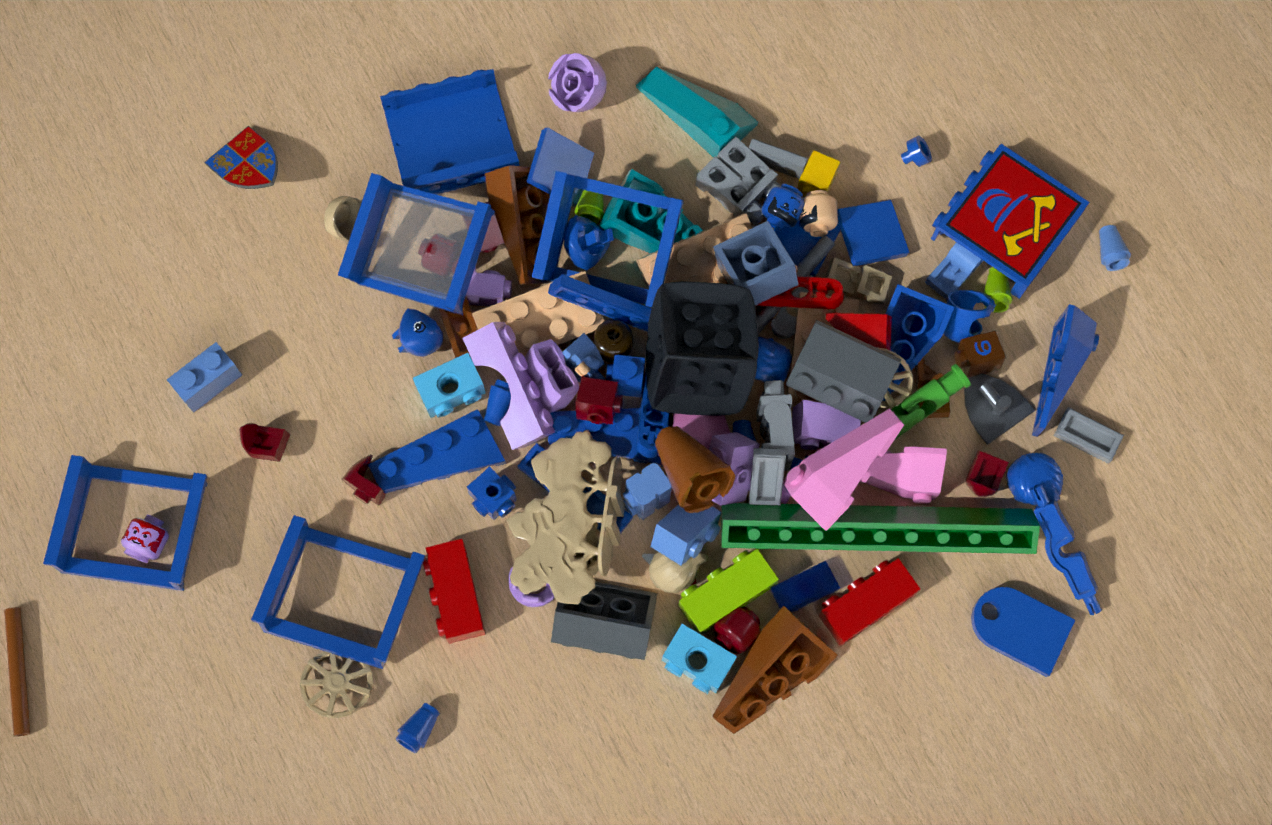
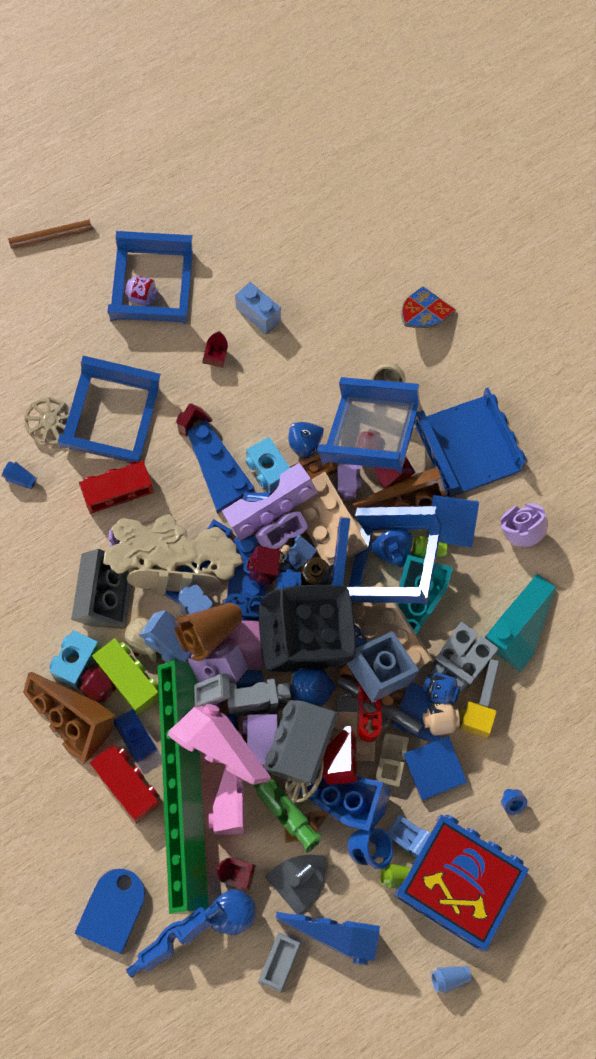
camera: 85 degrees right, 5 degrees down
(491, 484) = (188, 502): blue brick -> none
(980, 354) = (338, 862): reddish brown brick -> none

